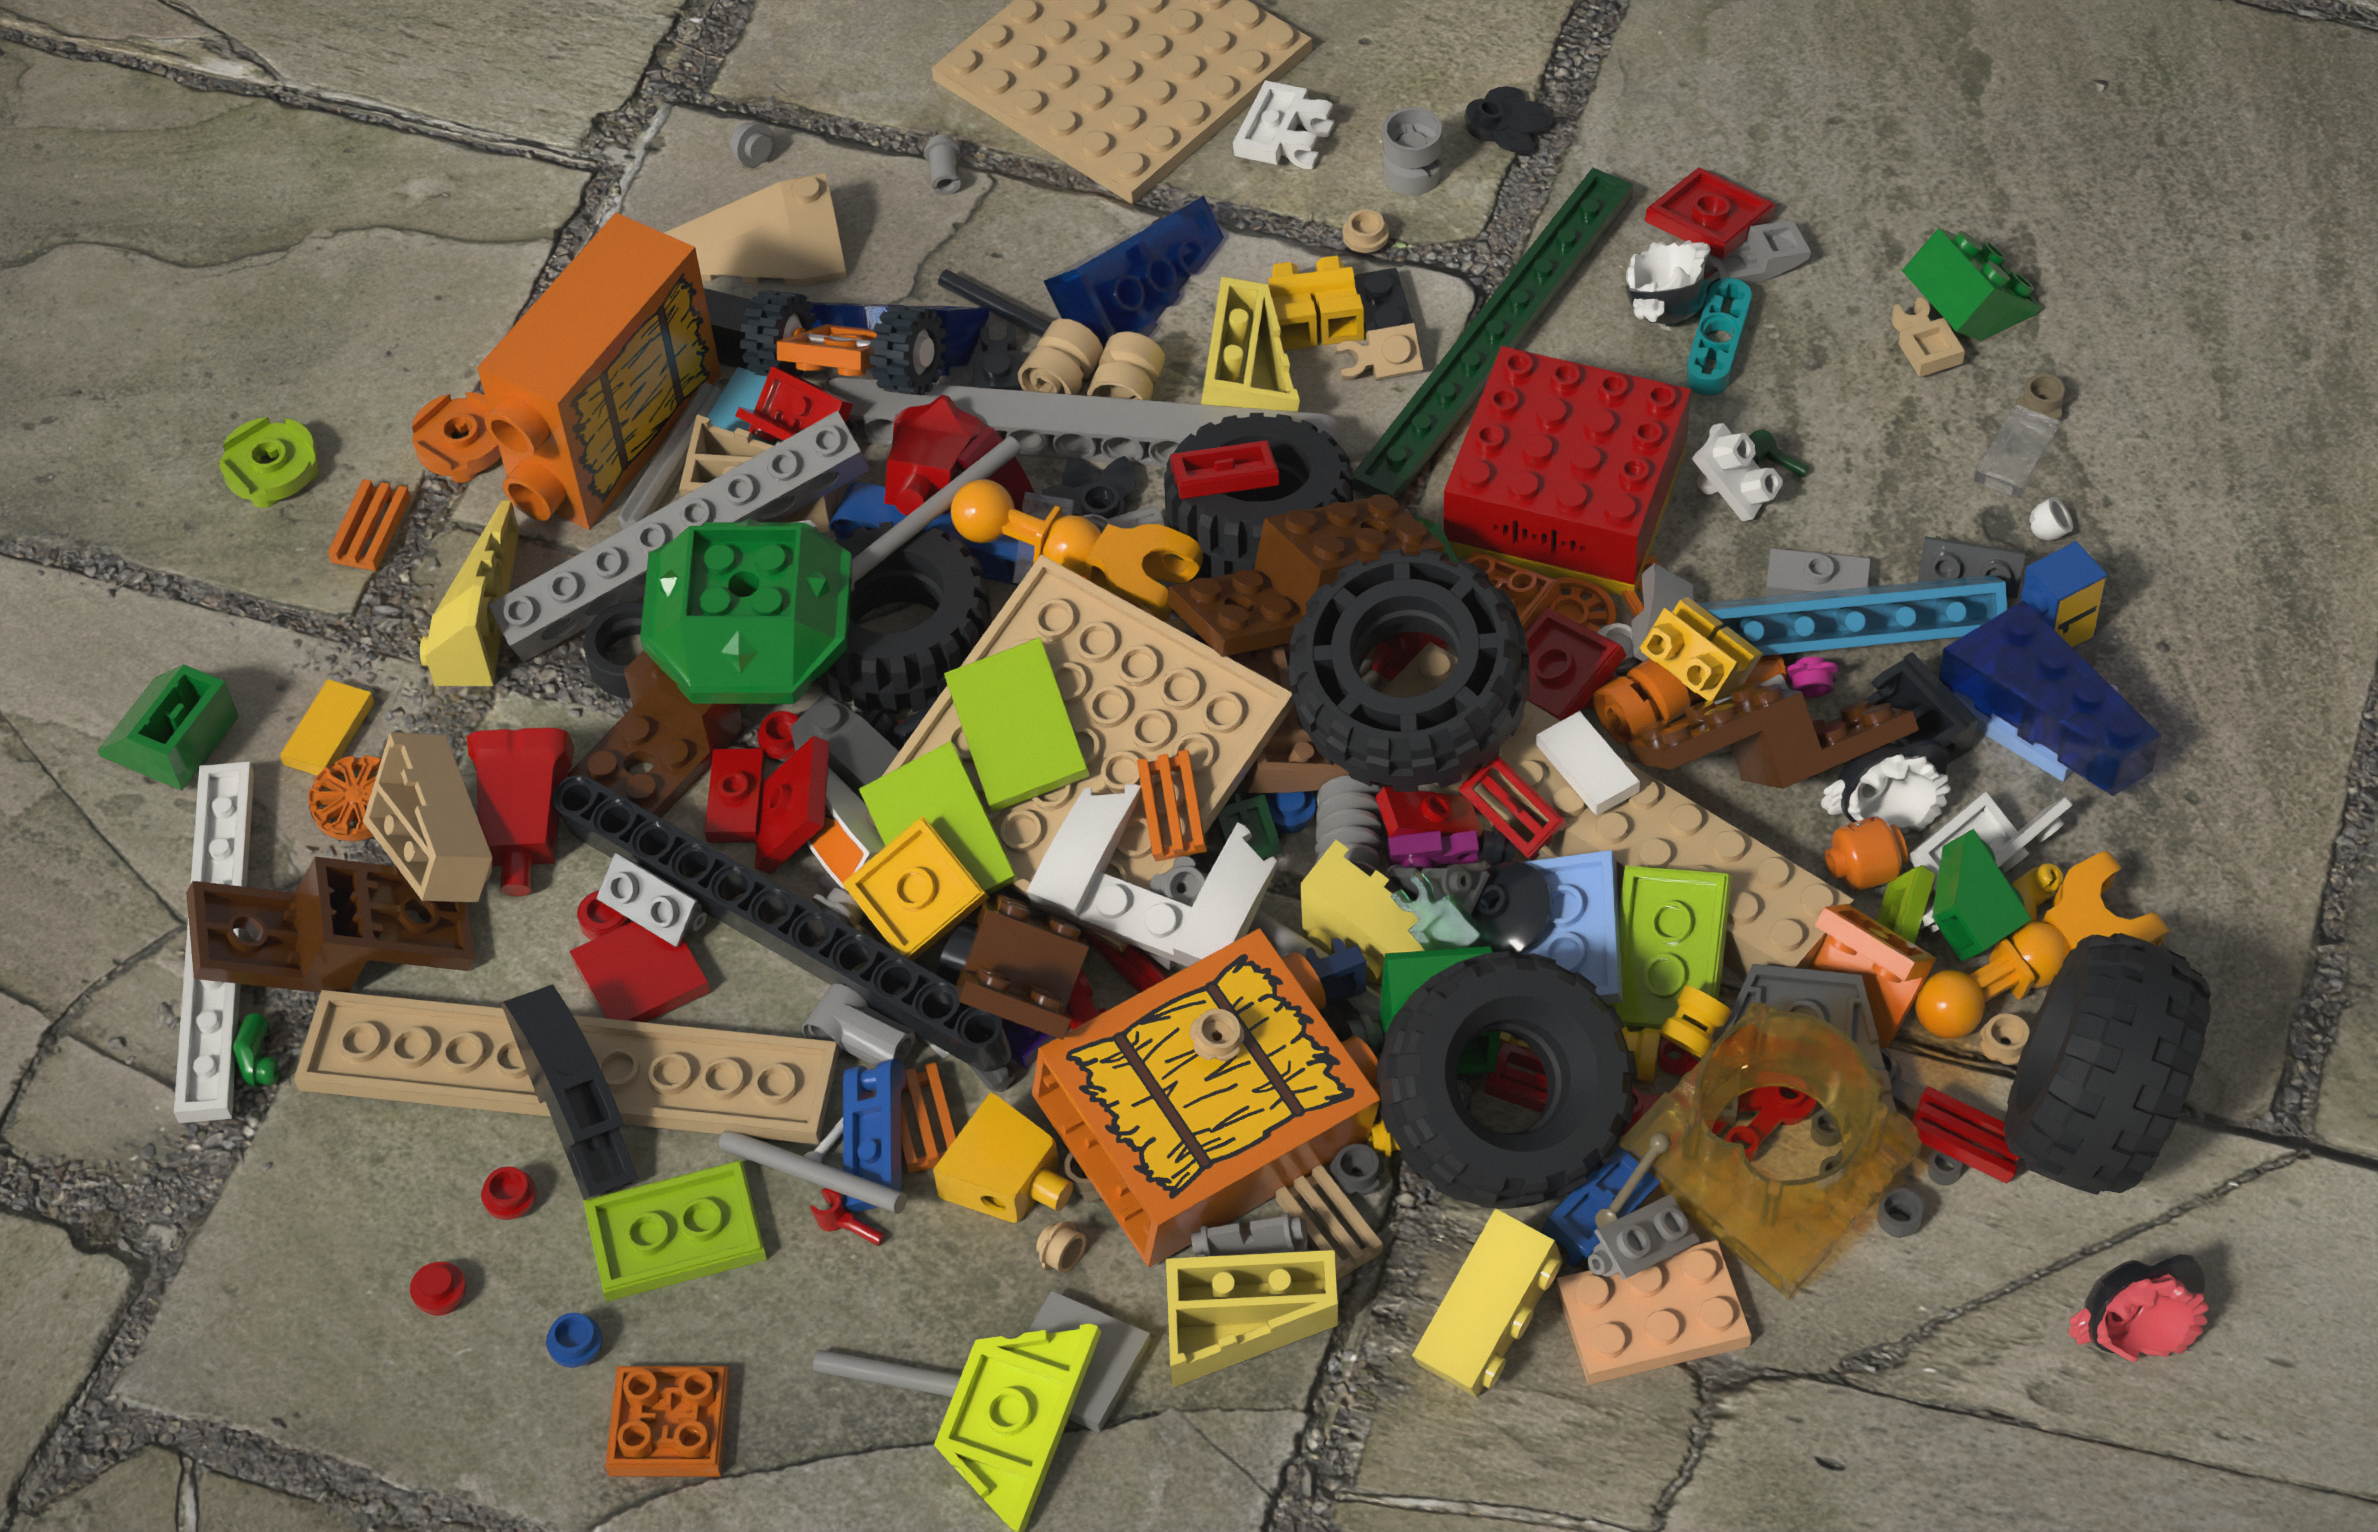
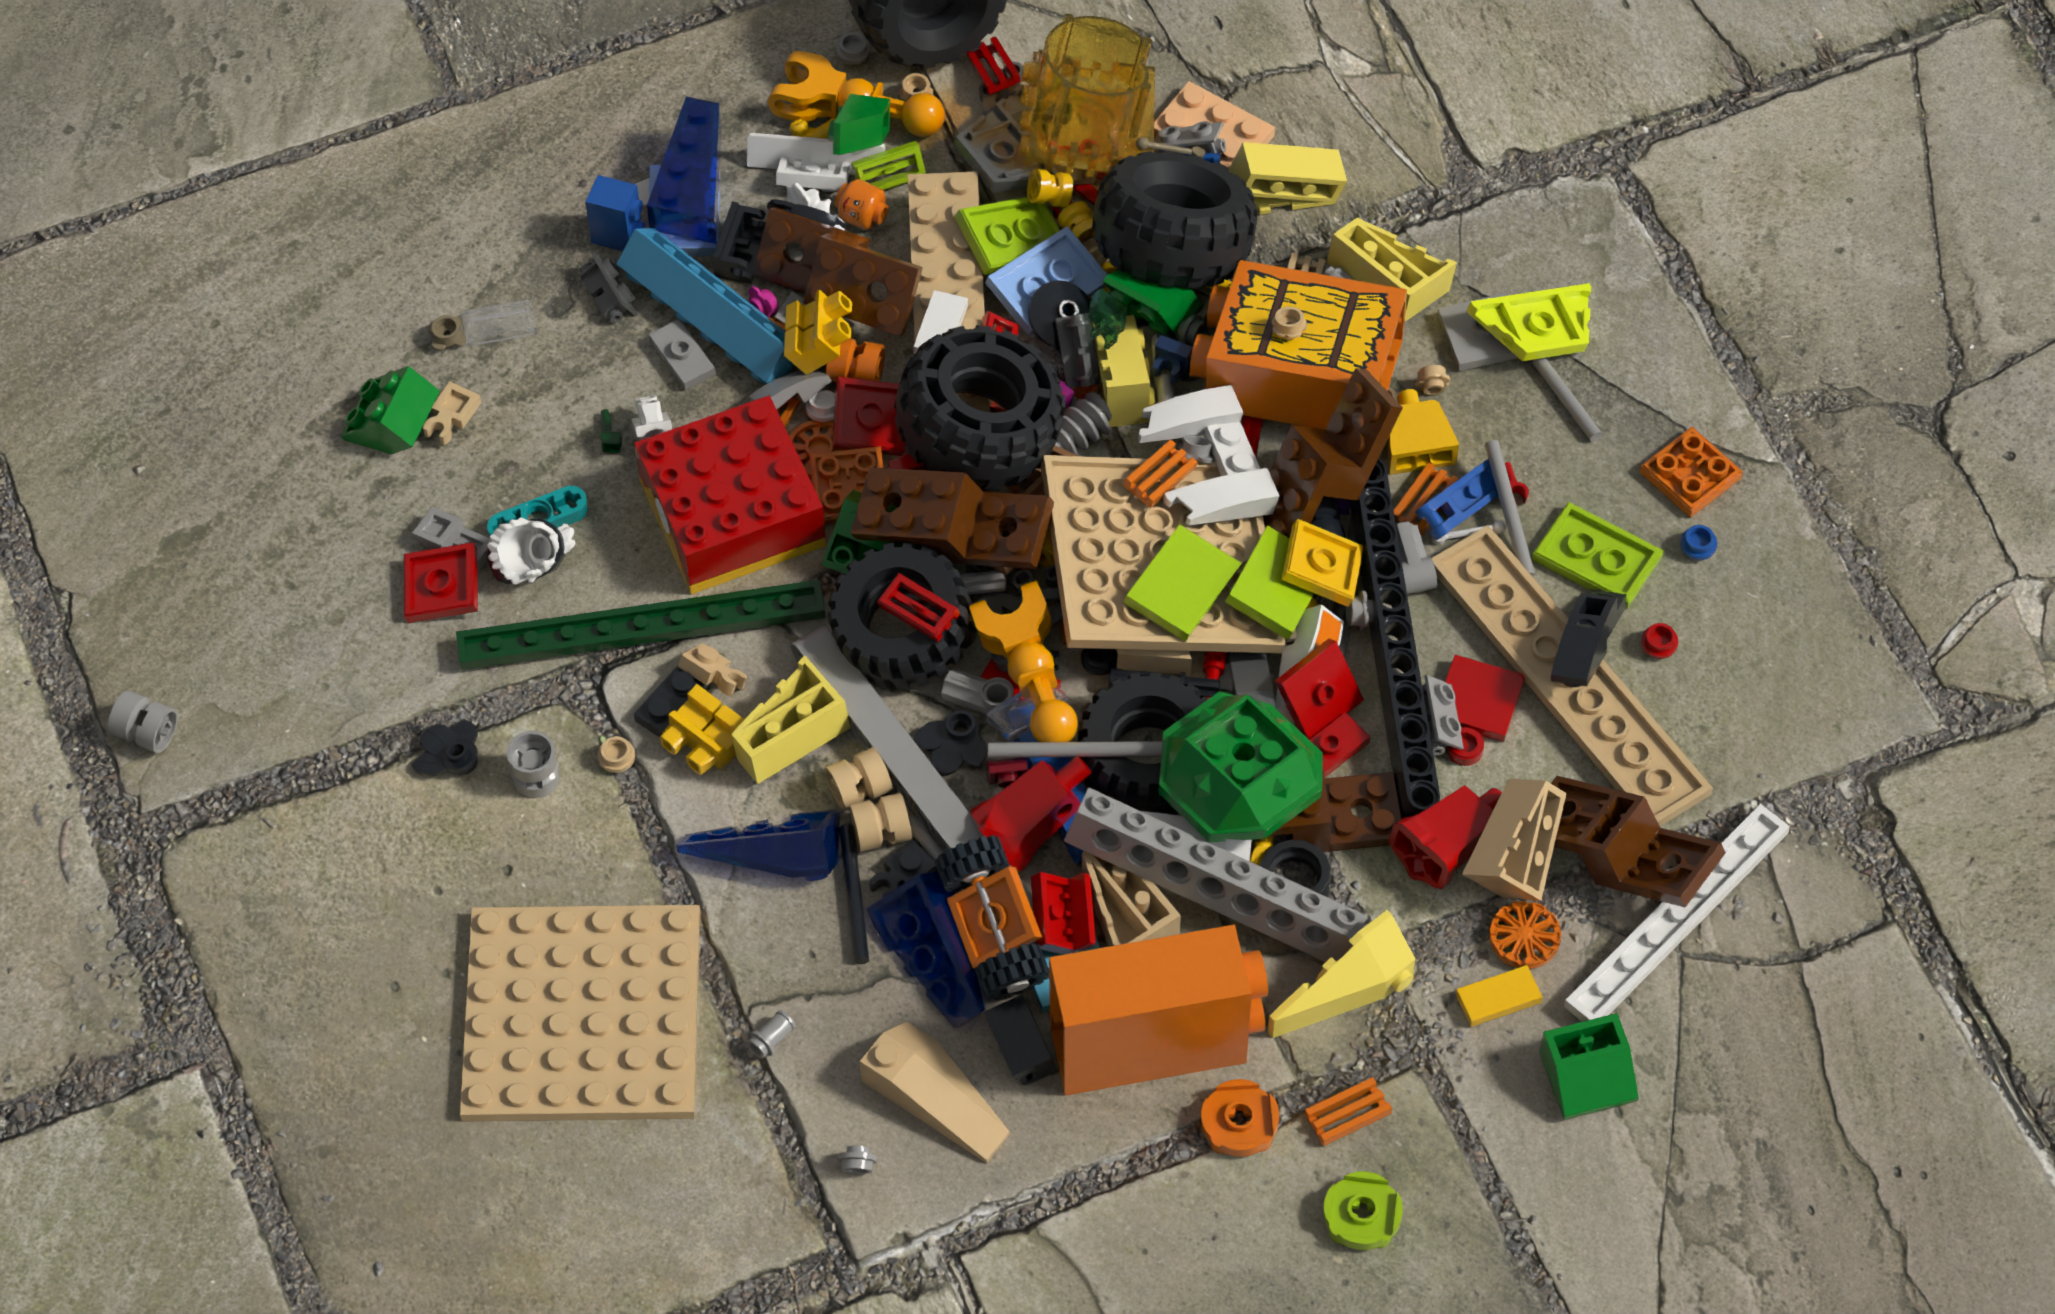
camera: 135 degrees left, 5 degrees up
(248, 1053) = (1722, 825): green arm -> none
(438, 1288) = (1738, 625): red plate -> none
(1272, 121) = (569, 871): white plate -> none
(1888, 964) = (936, 139): orange bracket -> none
(2050, 520) = (541, 271): white hinge -> none

